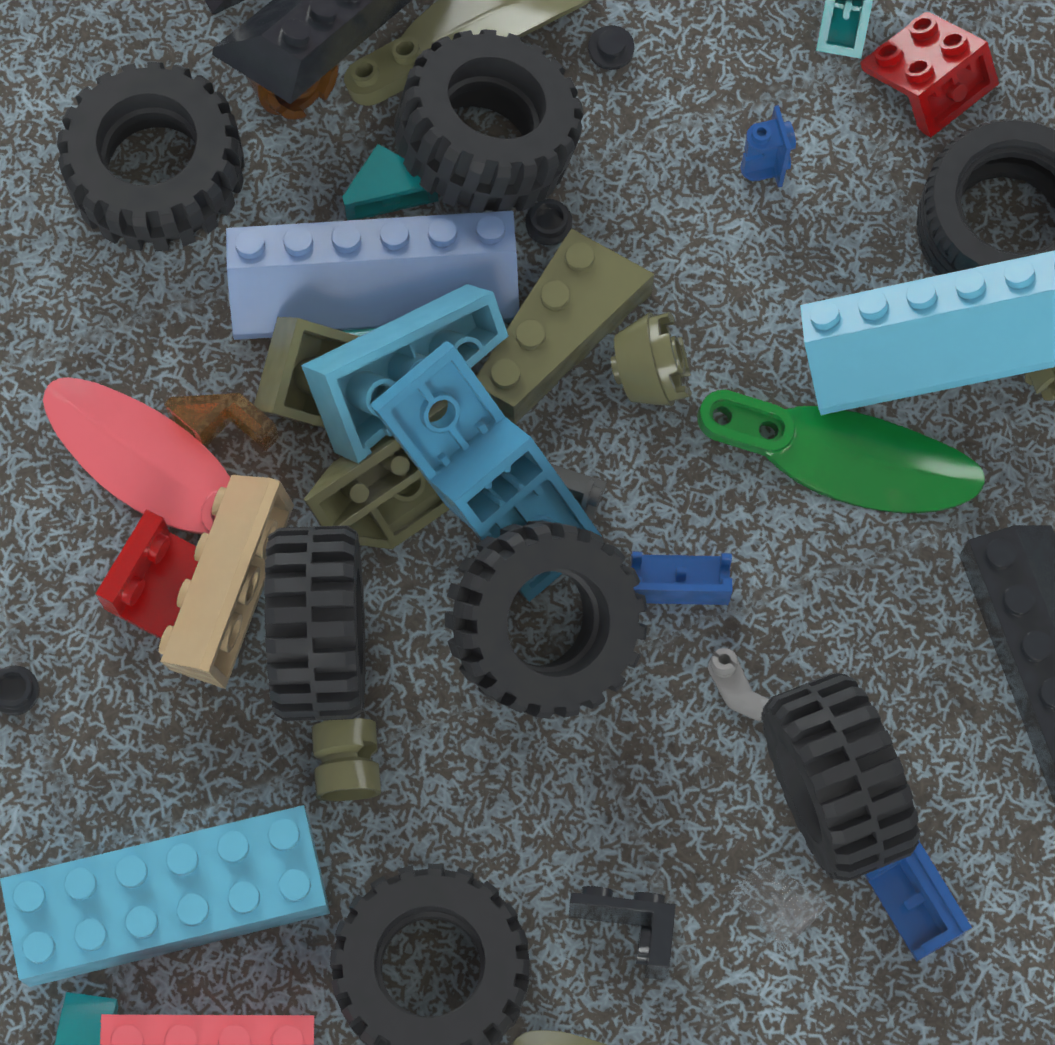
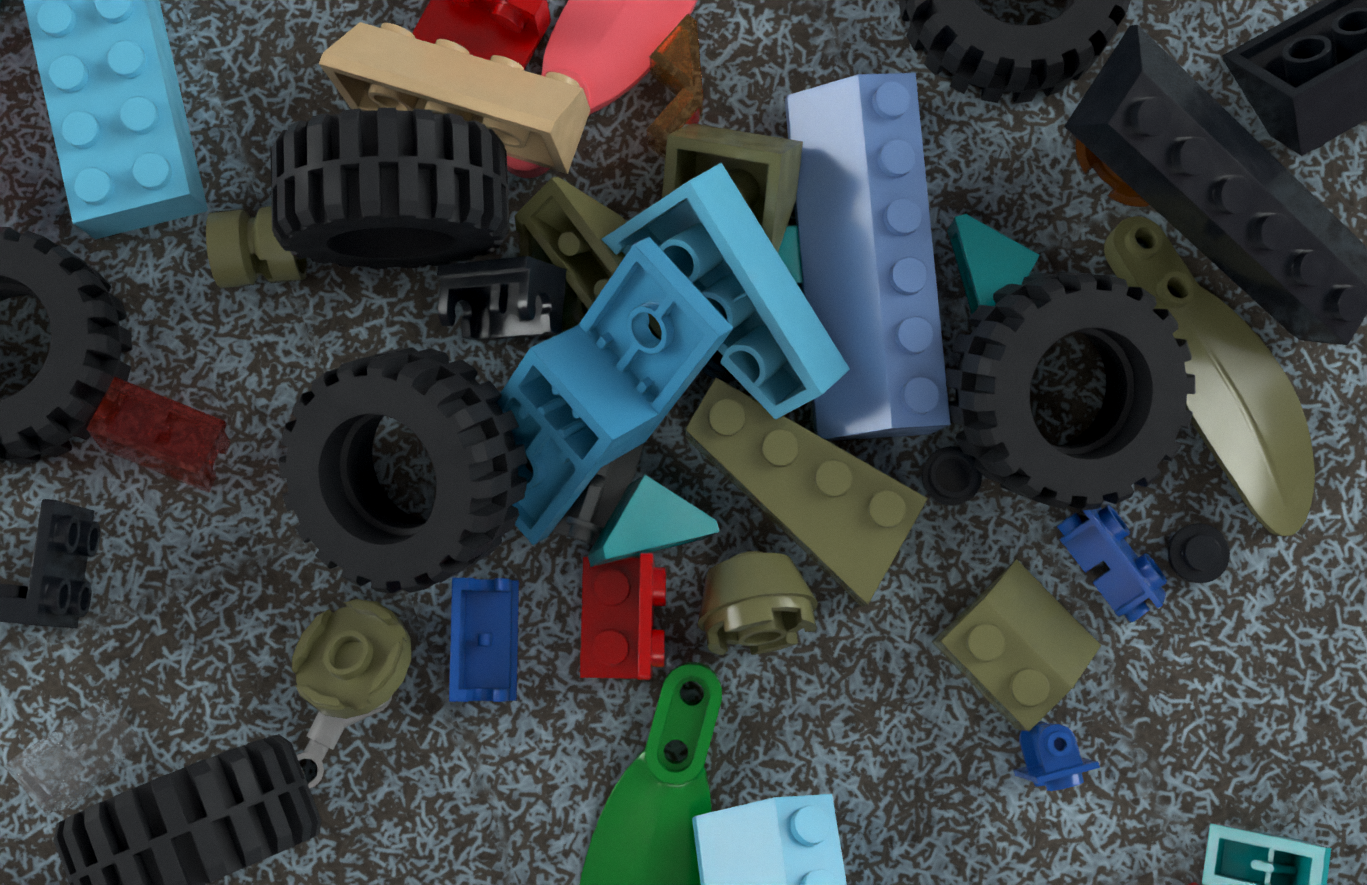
camera: 90 degrees right, 10 degrees up
(401, 553) = (503, 297): none -> black hinge
(509, 838) = (159, 434): none -> clear red hinge
(585, 444) = (649, 521): none -> teal slope
(632, 96) = (1129, 577): none -> blue hinge
(663, 461) = (619, 618): none -> red bracket
(686, 177) = (1018, 647): none -> olive slope
(697, 678) = (351, 659): none -> olive tile

